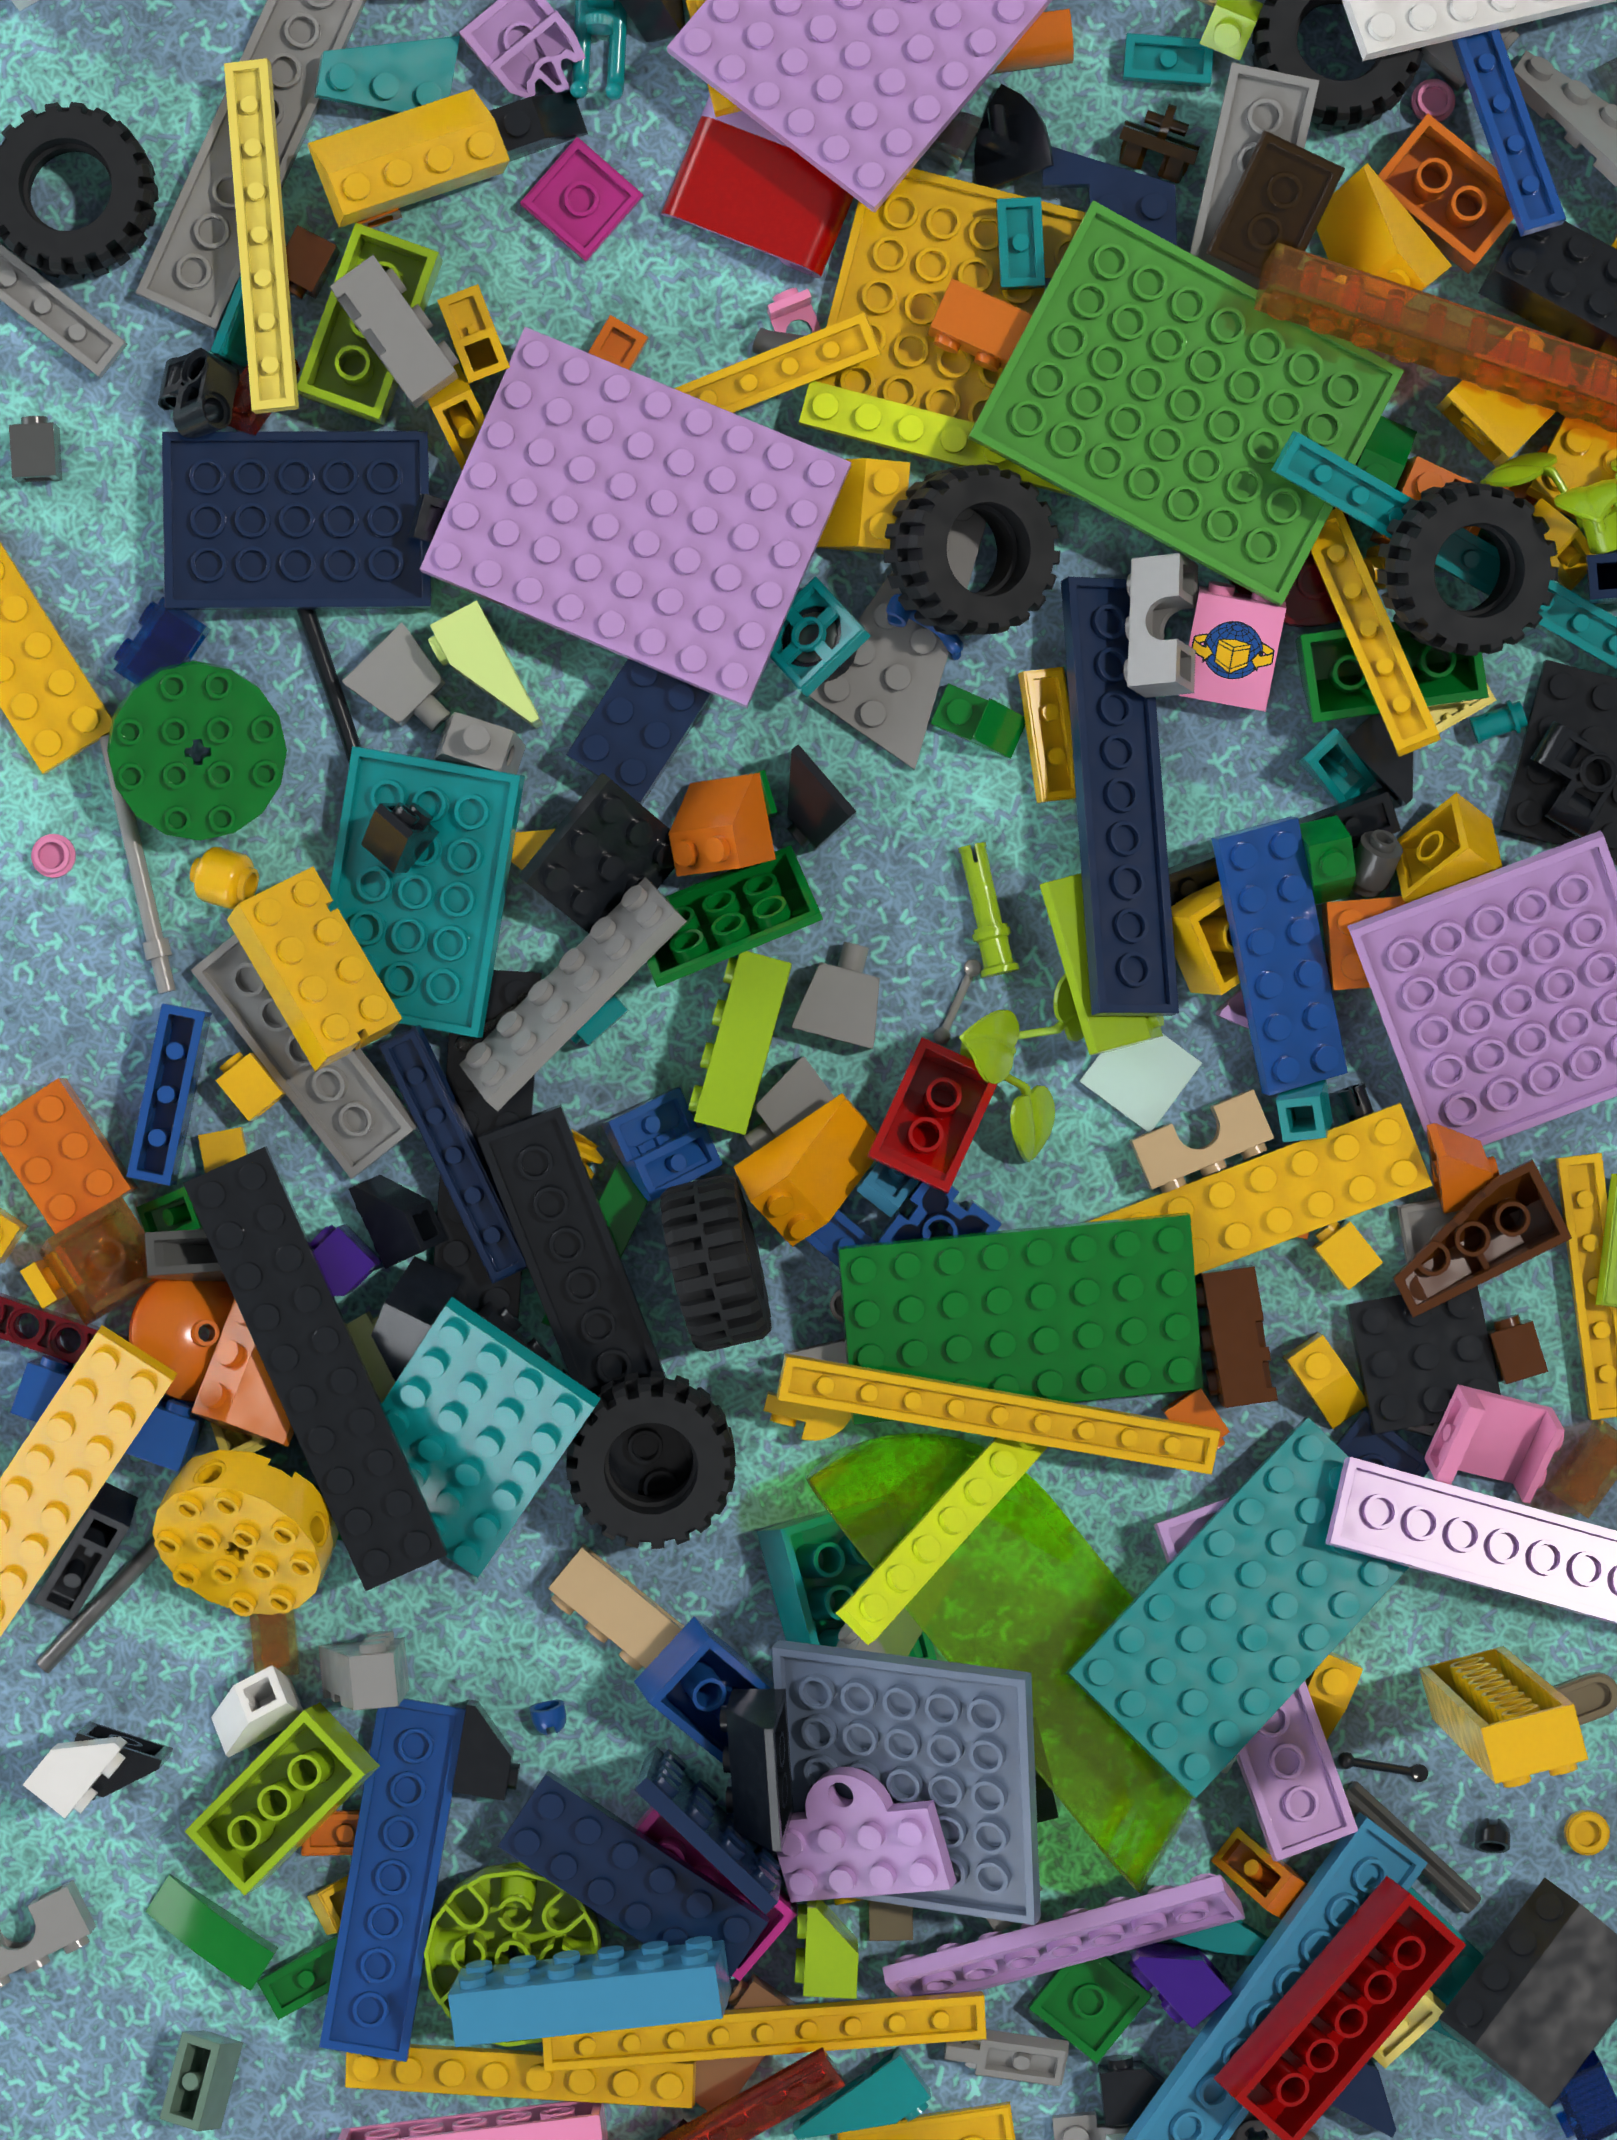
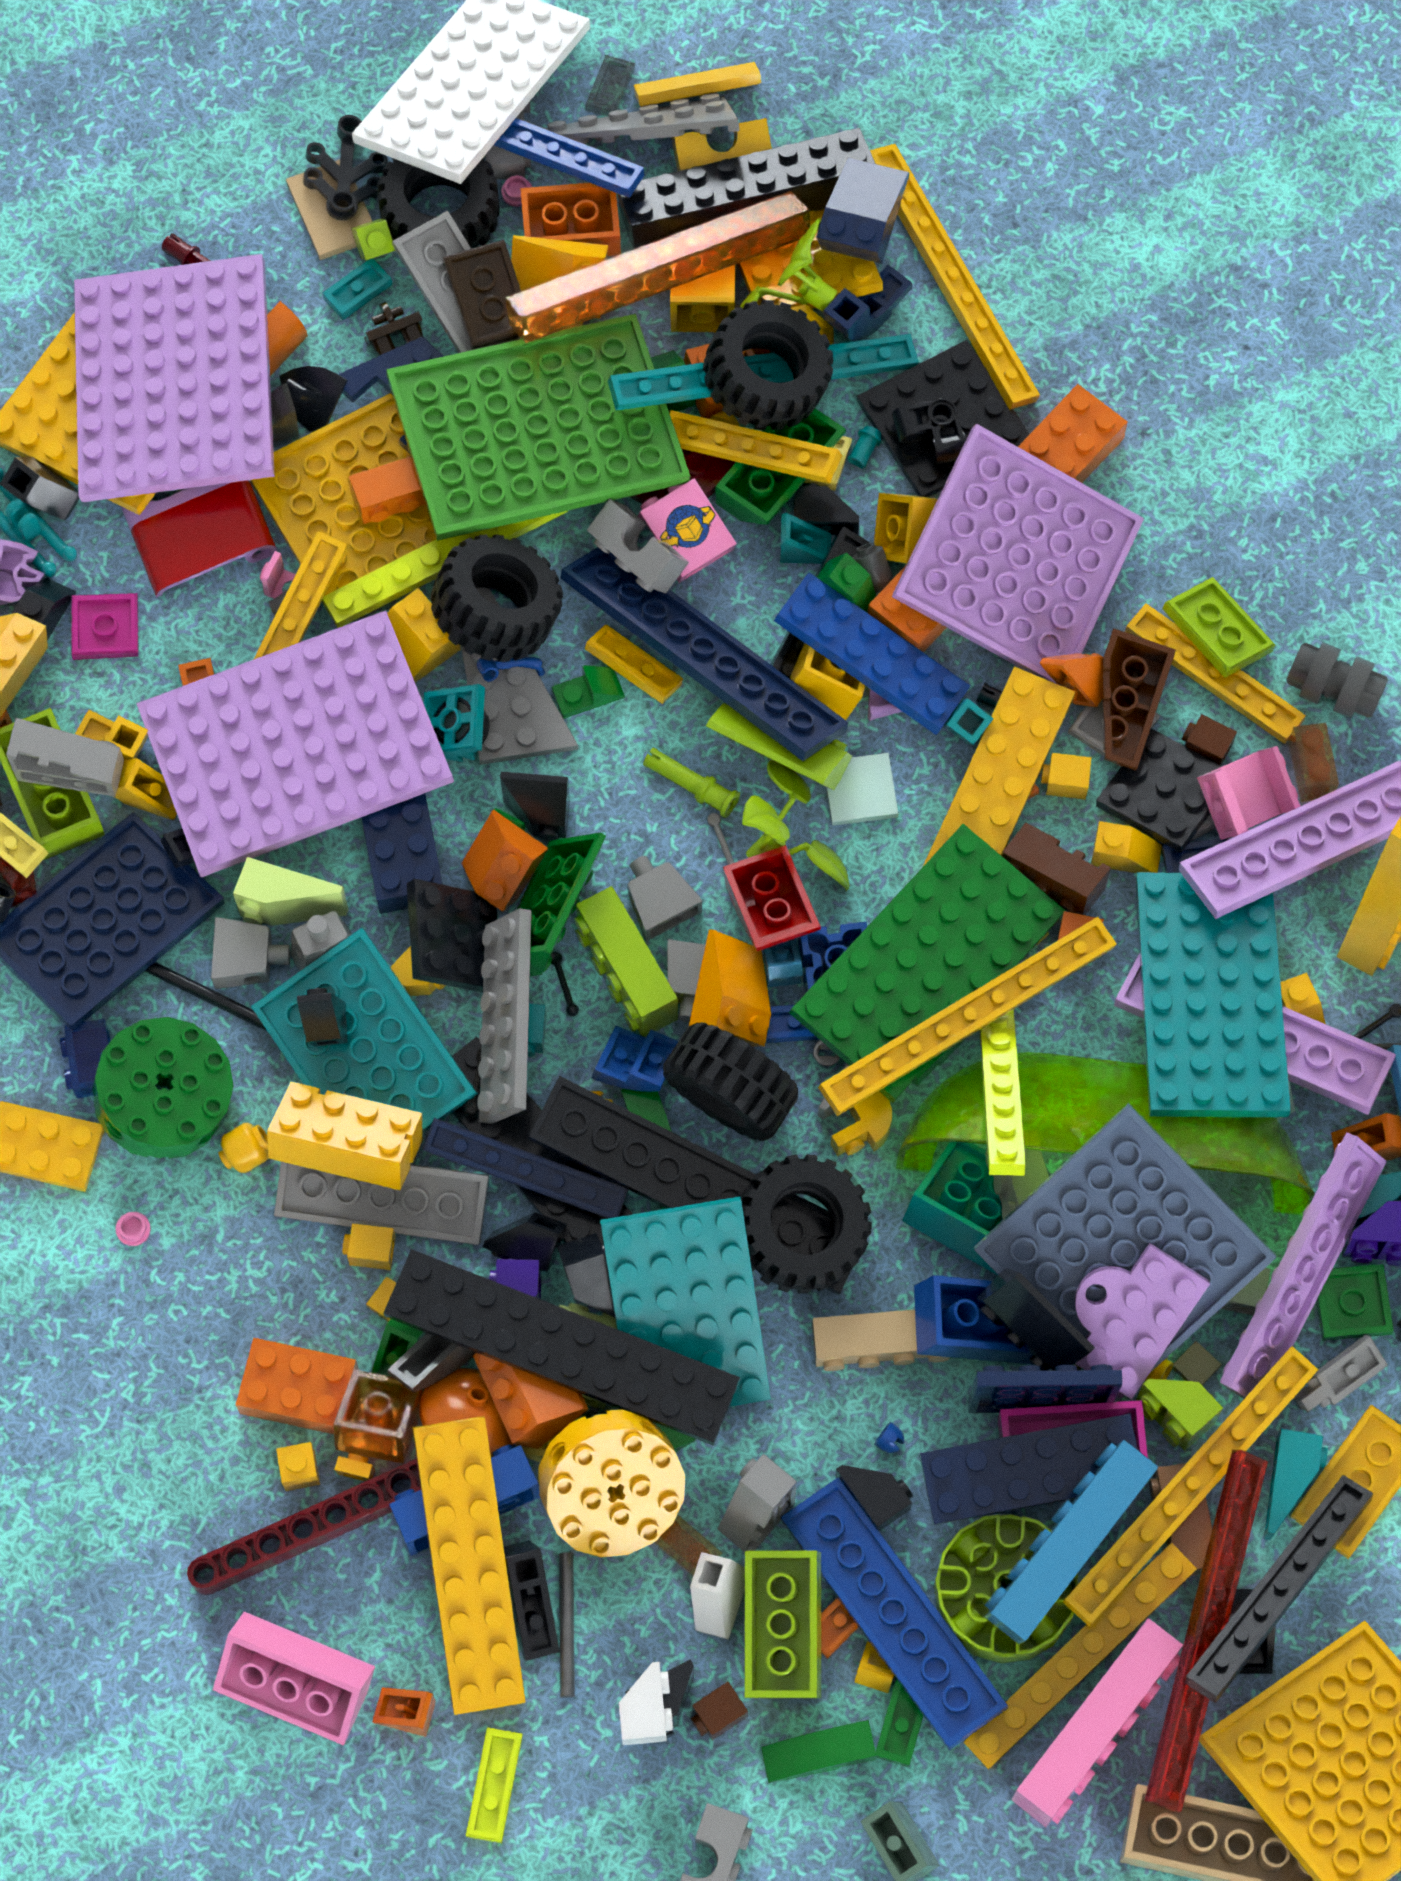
camera: 40 degrees left, 20 degrees down
(156, 946) = (240, 1223): light grey bar -> none
(157, 1812) = (718, 1712): none -> reddish brown brick
(169, 1094) = (327, 1291): blue brick -> none
(656, 1029) = (571, 1009): none -> black hinge
(1020, 243) = (368, 434): teal plate -> none
(1239, 1130) = (920, 814): tan arch -> none

